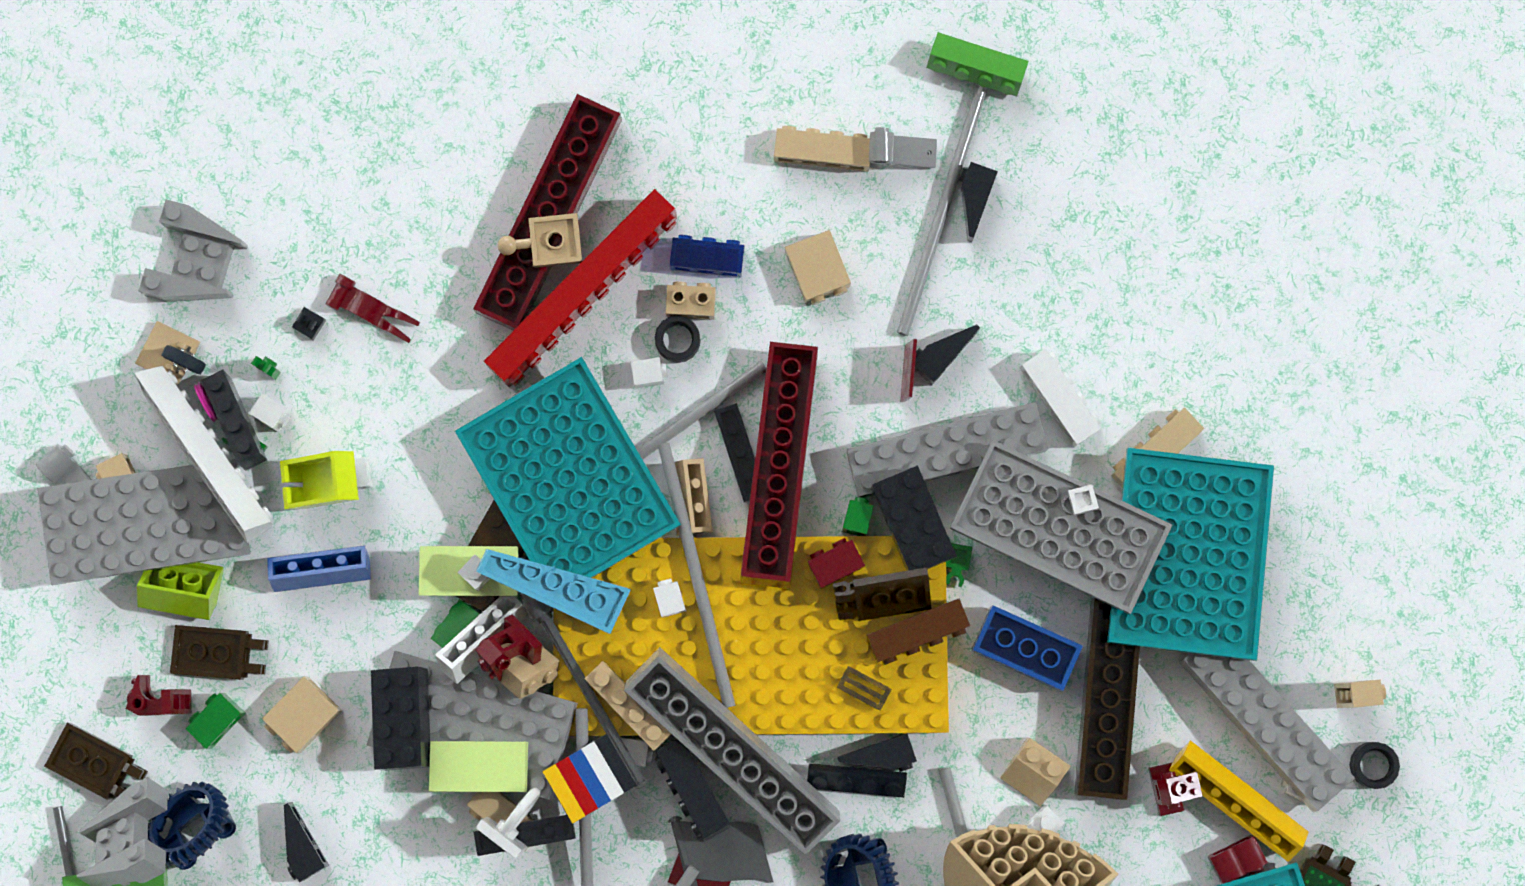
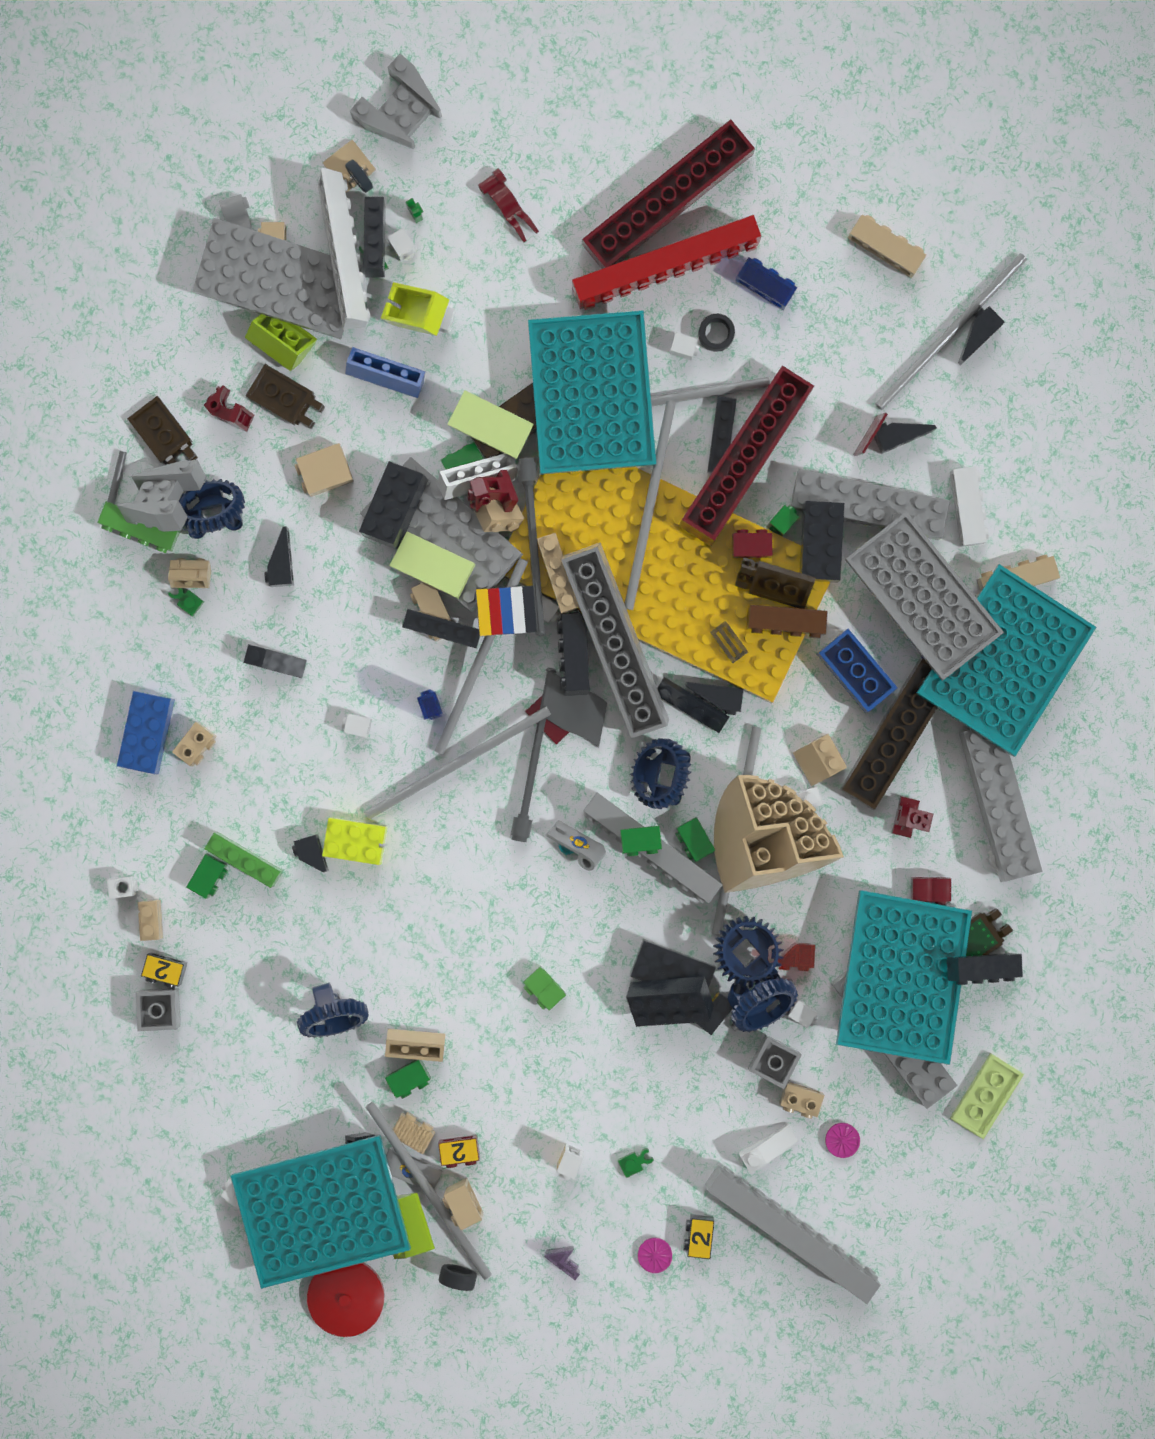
camera: 20 degrees right, 5 degrees up
(204, 399) = (360, 214): dark pink wheel -> none
(214, 720) = (261, 444): green brick -> none
(308, 323) = (459, 193): black tile -> none
(469, 573) = (496, 427): white brick -> none
(505, 832) = (431, 618): white tile -> none
(540, 231) = (657, 206): tan plate -> none
(574, 594) = (557, 476): medium azure wing -> none
(669, 598) = (622, 512): white brick -> none
(691, 301) = (739, 310): tan brick -> none
(695, 494) = (676, 448): tan brick -> none
(818, 268) = (841, 329): tan brick -> none
(901, 150) = (942, 273): light grey door -> none
(960, 563) = (838, 588): green plate -> none
(977, 64) = (1028, 237): bright green brick -> none
(1083, 500) = (949, 584): white plate -> none
(1241, 802) = (954, 851): yellow brick -> none
(1359, 694) = (1075, 815): tan brick -> none
(1393, 760) = (1074, 868): black tyre -> none

